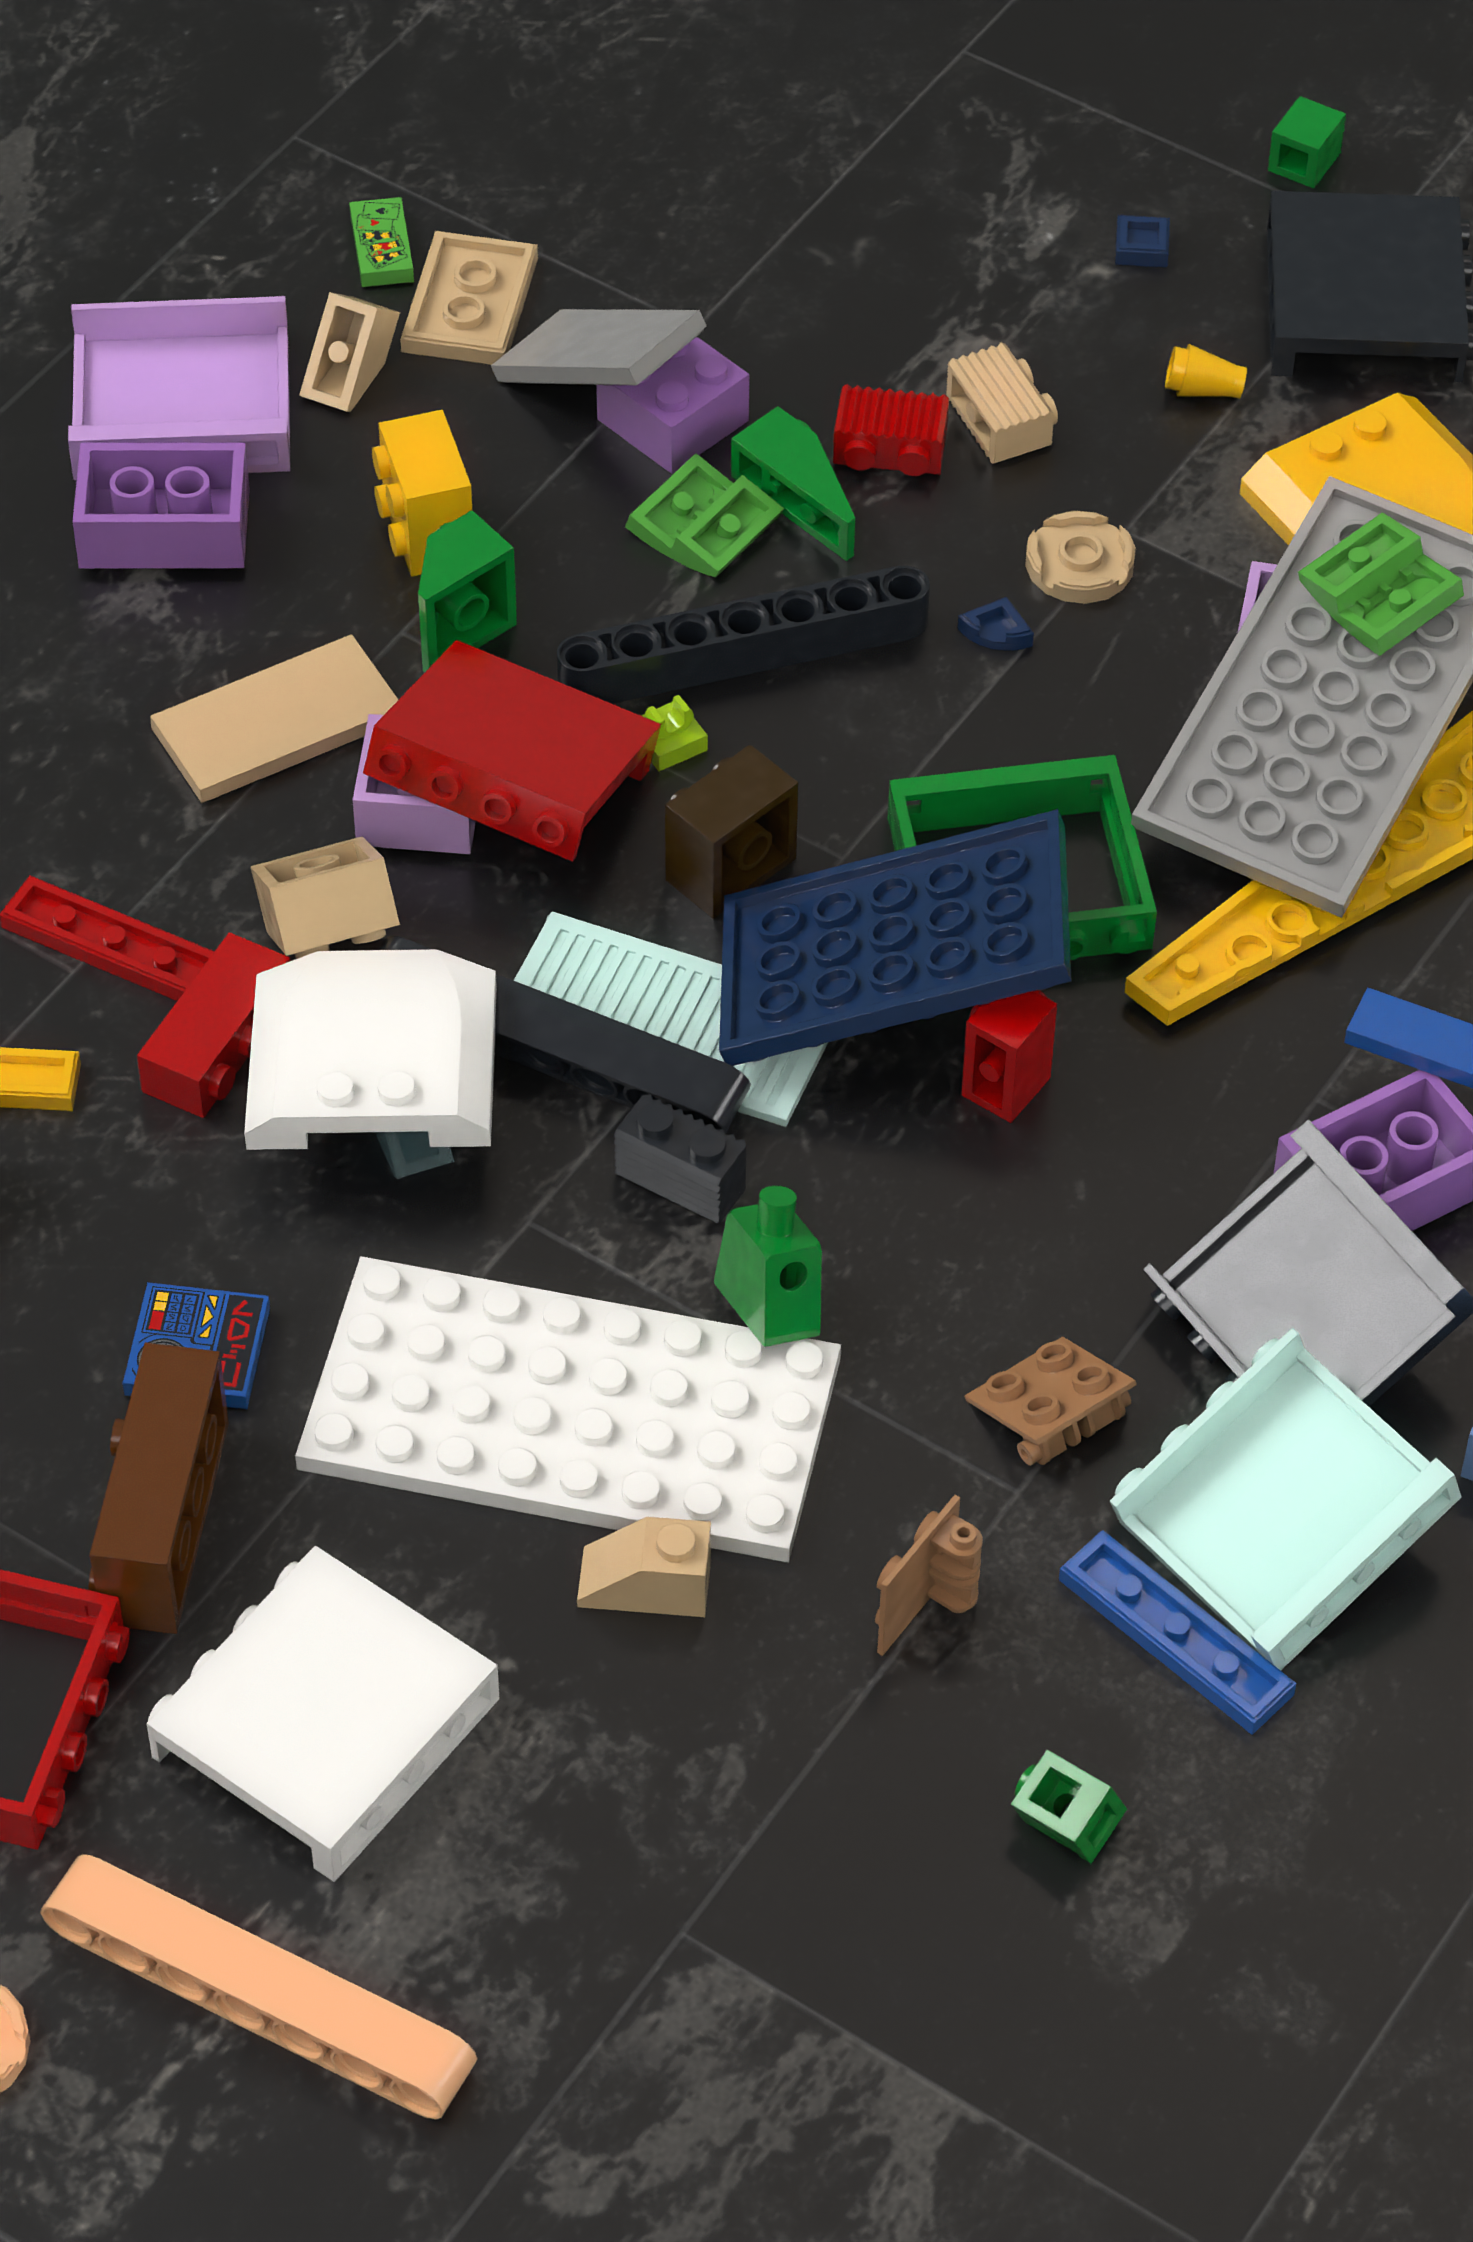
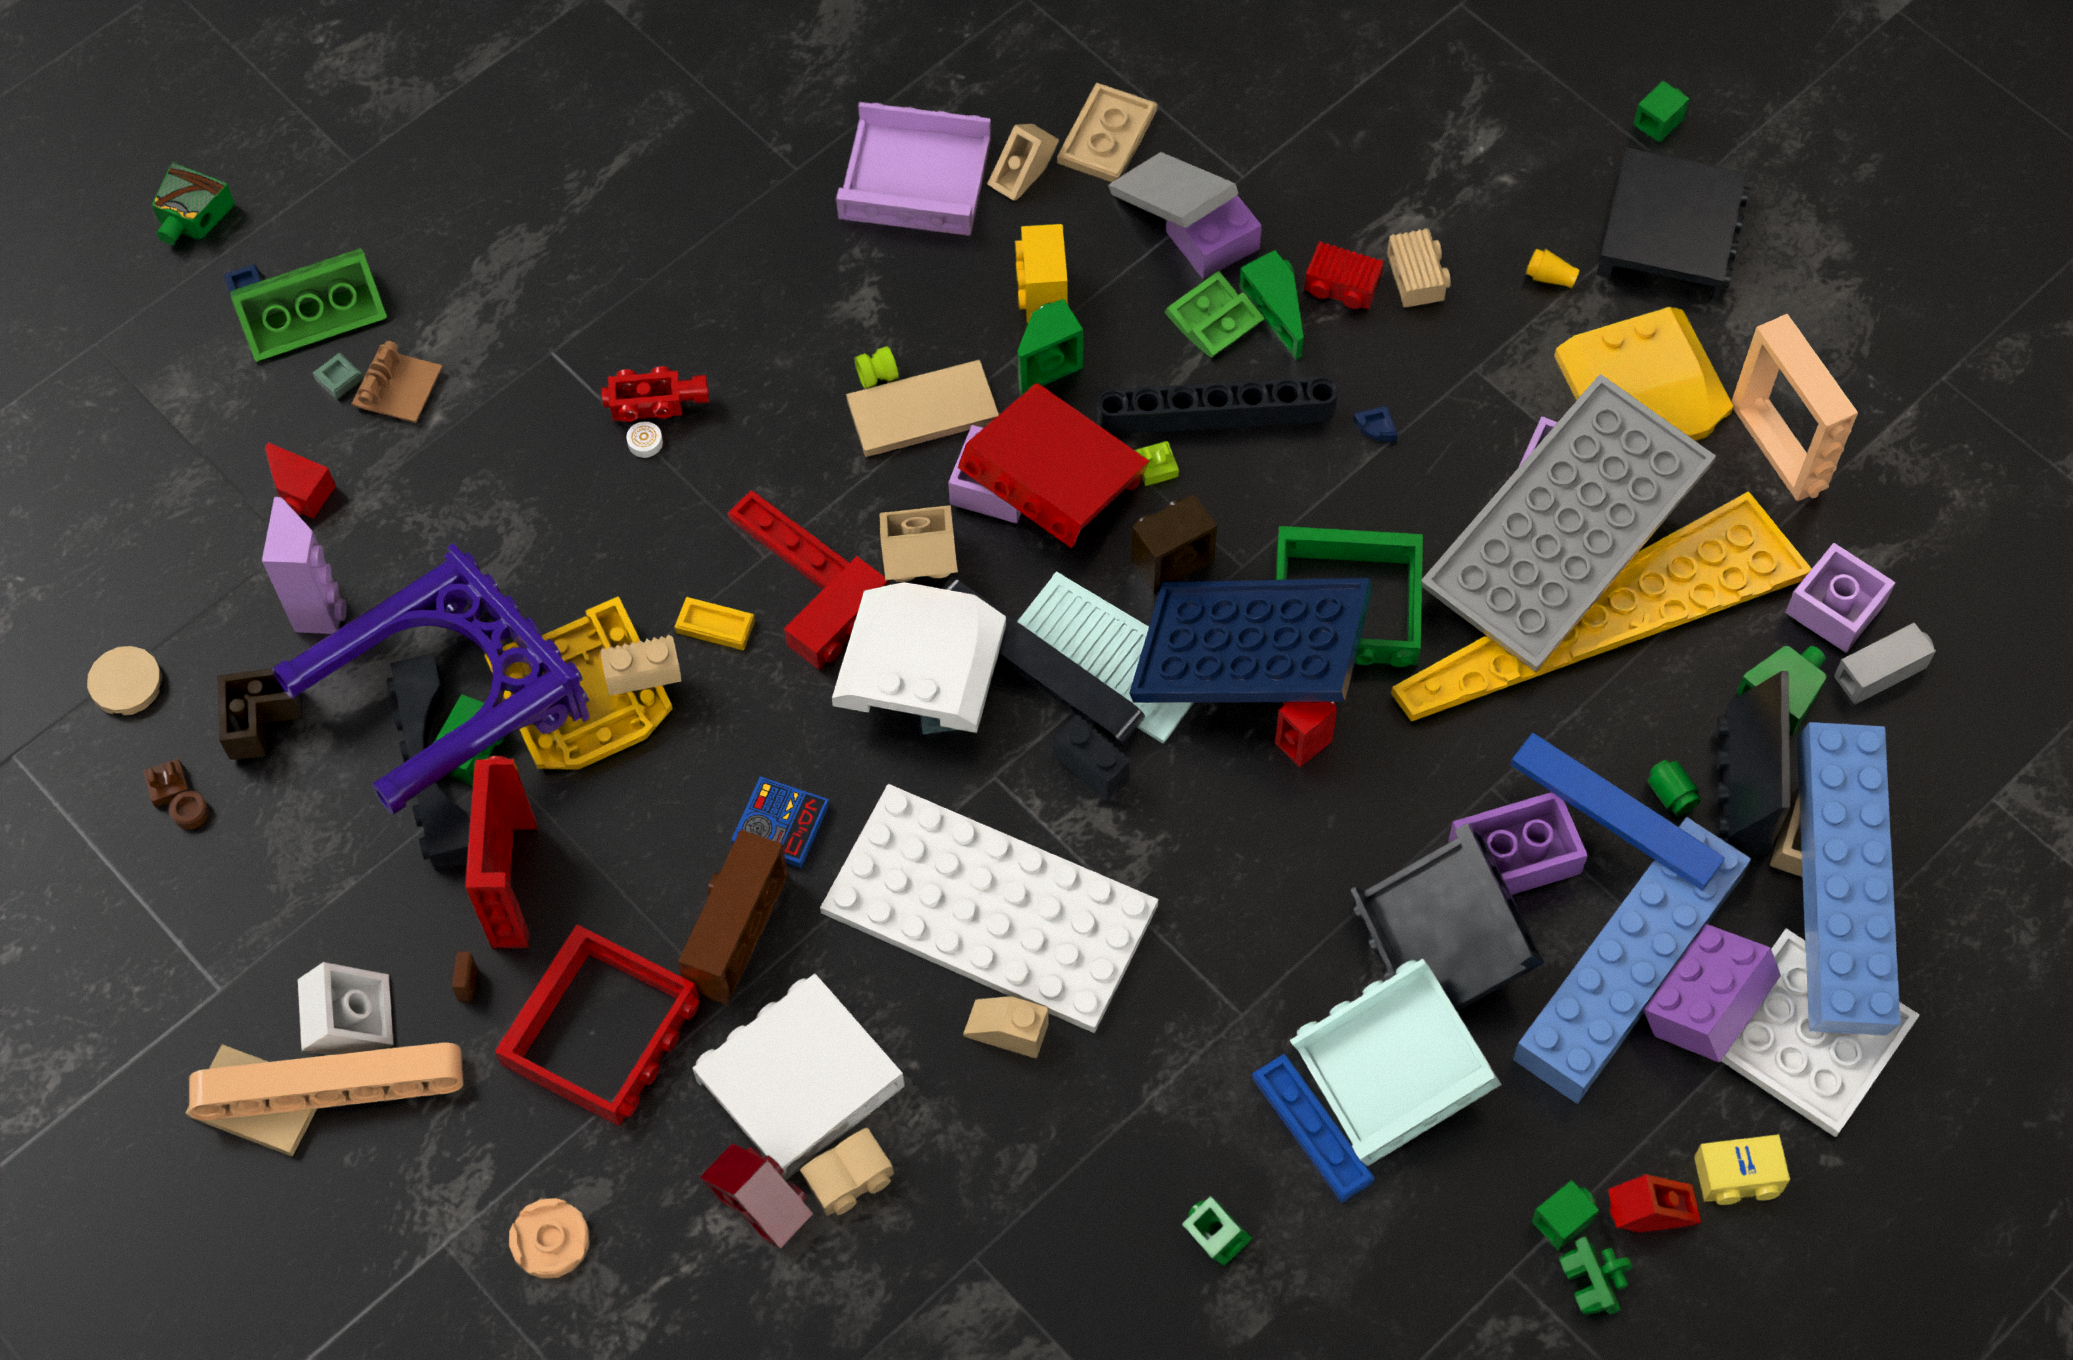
camera: 15 degrees right, 10 degrees up
(161, 505) = (883, 252): medium lavender brick -> none
(192, 669) = (879, 366): none -> lime wheel
(259, 1986) = (723, 1243): light nougat beam -> none
(305, 1888) = (758, 1192): none -> brick
(381, 242) = (1062, 84): bright green tile -> none
(441, 1838) = (848, 1172): none -> tan brick
(771, 1269) = (1126, 836): green torso -> none
(938, 1566) = (1178, 1059): medium nougat hinge -> none
(1054, 1398) = (1276, 958): medium nougat hinge -> none
(1080, 557) = (1441, 384): tan tile -> none
(1142, 241) = (1538, 164): dark blue tile -> none
(1380, 583) = (1613, 455): bright green slope -> none

